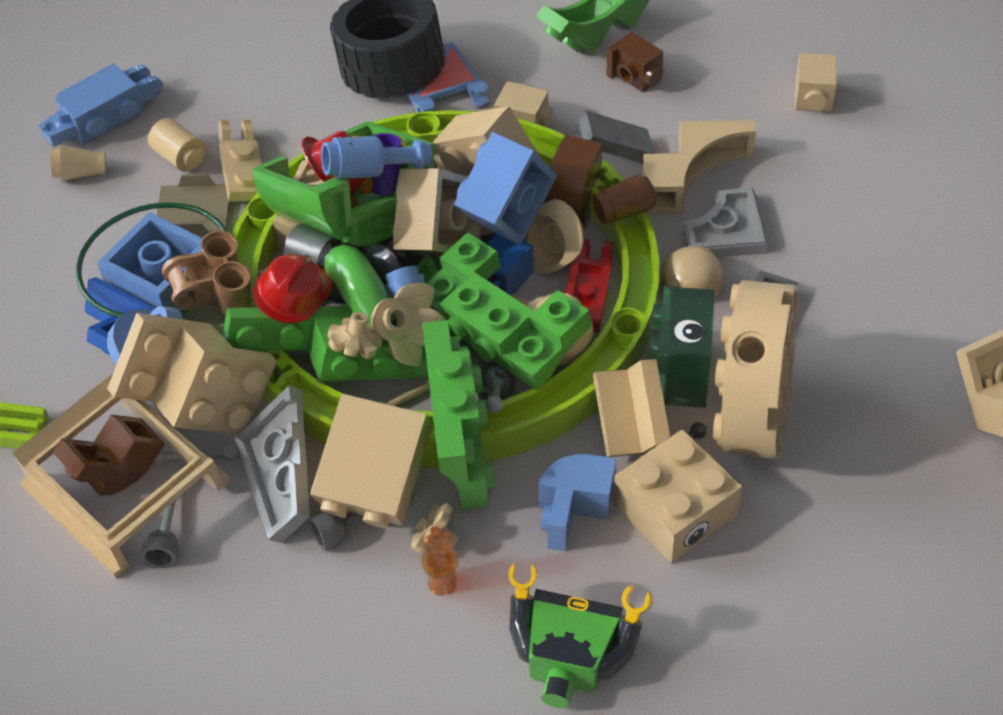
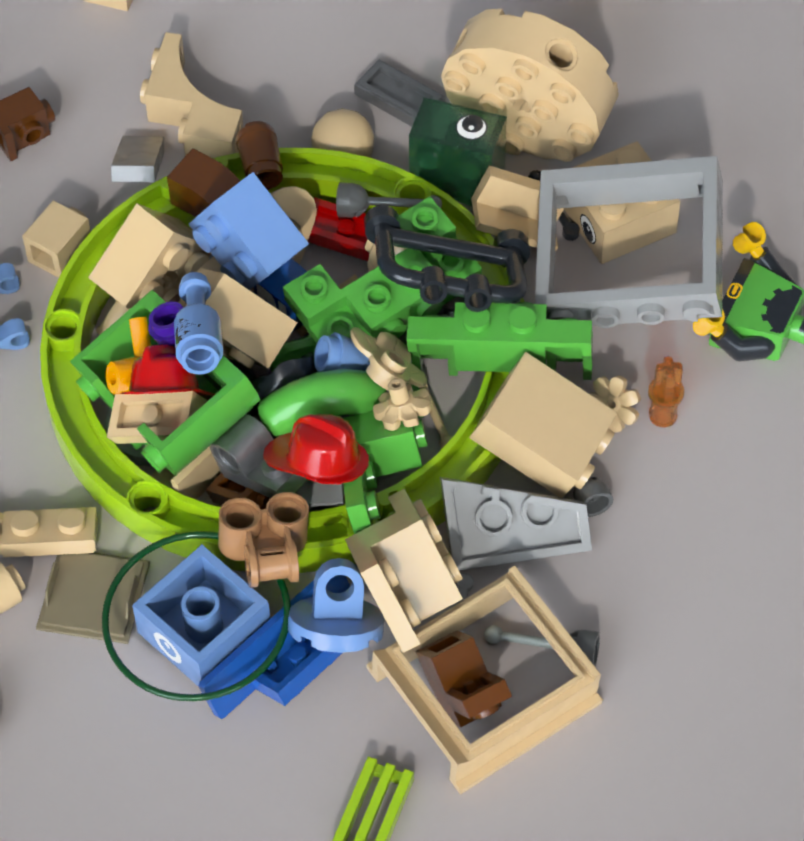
camera: 80 degrees left, 5 degrees up
(536, 279) = (508, 250): none -> black bar
(574, 486) = (594, 266): medium blue brick -> none
(589, 541) = (633, 184): none -> light grey window
(605, 280) = (353, 200): none -> dark grey hinge
(730, 226) = (282, 98): light grey tile -> none

